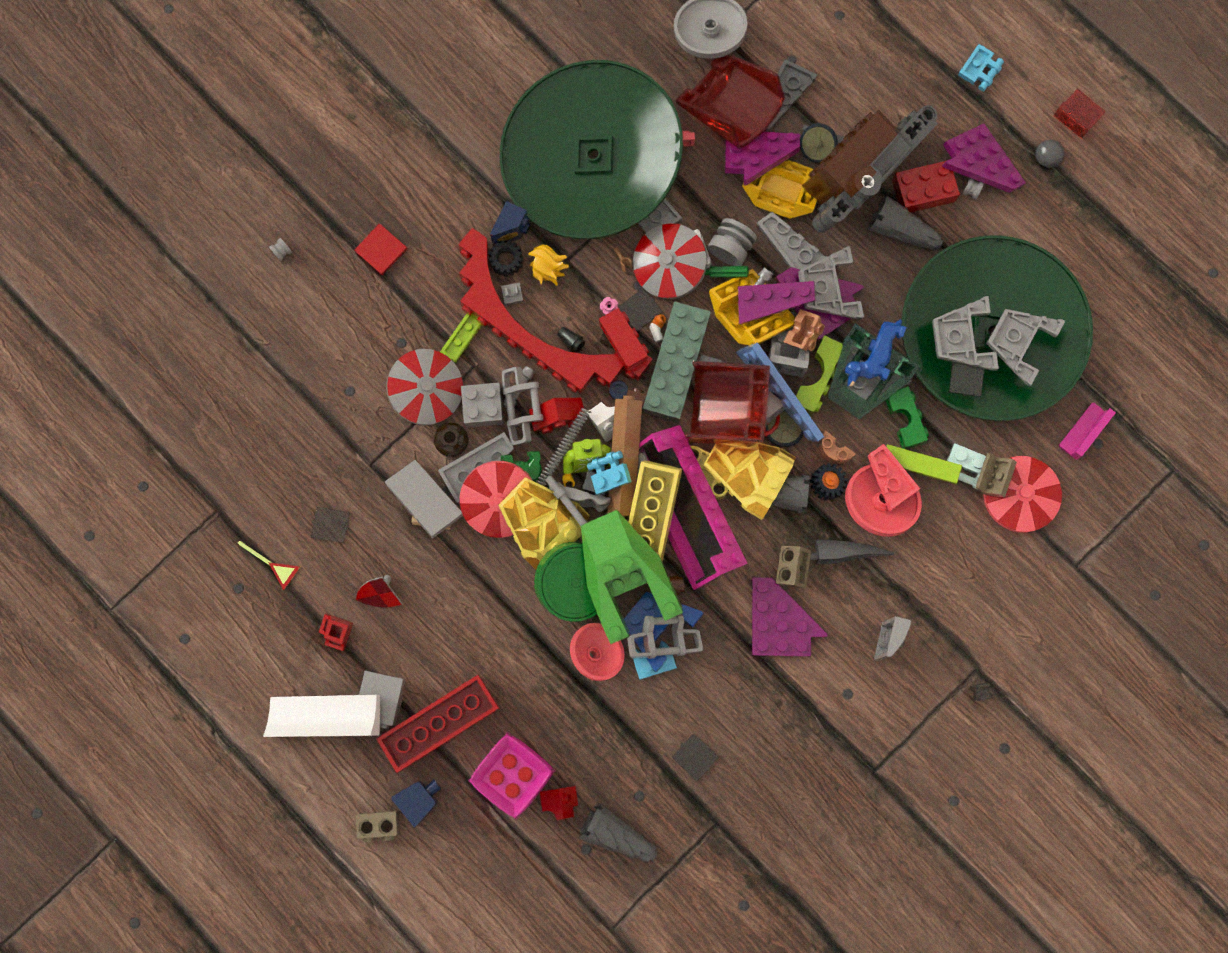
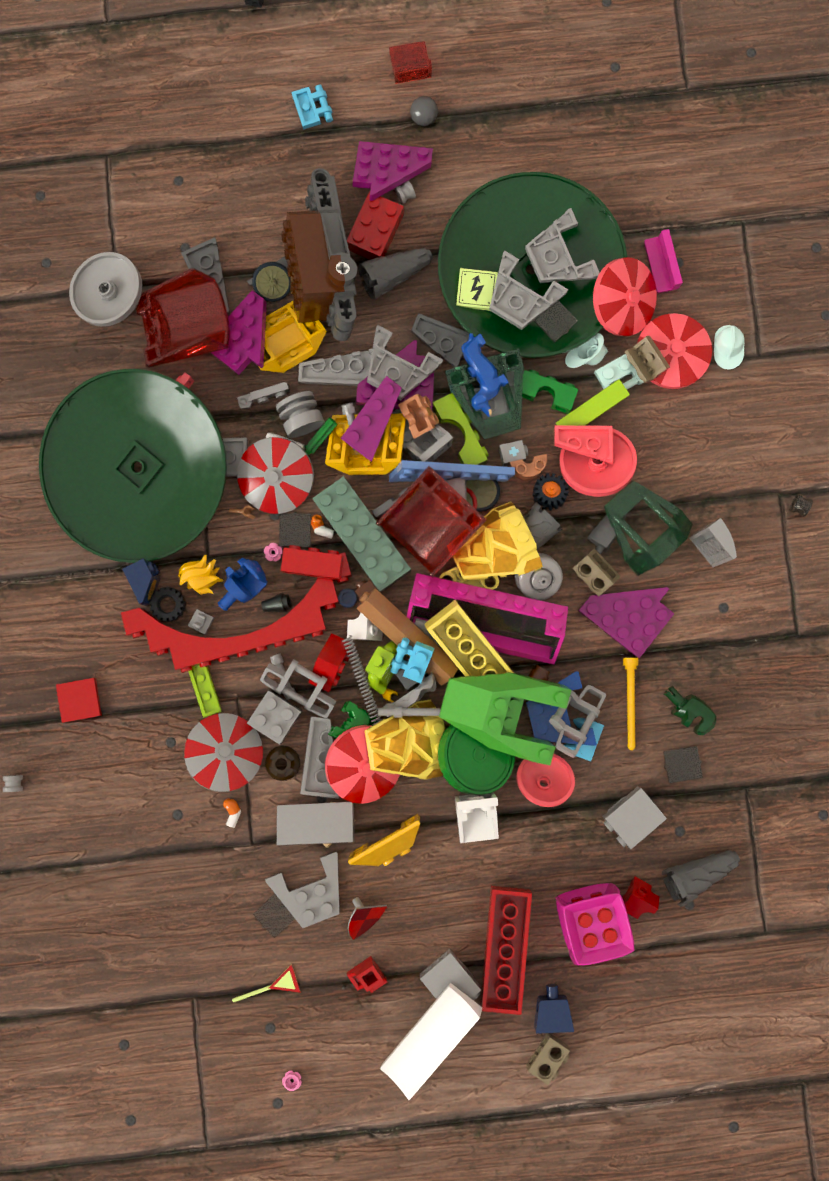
camera: 55 degrees left, 5 degrees up
(210, 630) = (291, 1086): none -> bright pink plate
(361, 544) = (314, 900): none -> light grey wing
(385, 431) = (233, 810): none -> arm
(451, 567) = (388, 847): none -> yellow slope
(525, 620) = (477, 817): none -> white bracket
(566, 301) = (243, 583): none -> blue piece
(620, 746) = (633, 818): none -> light grey brick
(725, 204) = (262, 395): none -> light grey hinge
(741, 652) = (631, 664): none -> yellow piece
(743, 723) = (690, 708): none -> dark green piece
(751, 530) = (543, 582): none -> light grey wheel
(836, 428) = (512, 452): none -> light grey brick
(855, 603) = (653, 555): none -> clear green windscreen
(880, 302) = (441, 338): none -> dark grey wing
(940, 298) = (476, 288): none -> yellowish green tile
(964, 427) = (588, 353): none -> light aqua piece
(1031, 419) = (624, 296): none -> dish
(1062, 536) = (728, 347): none -> light aqua piece

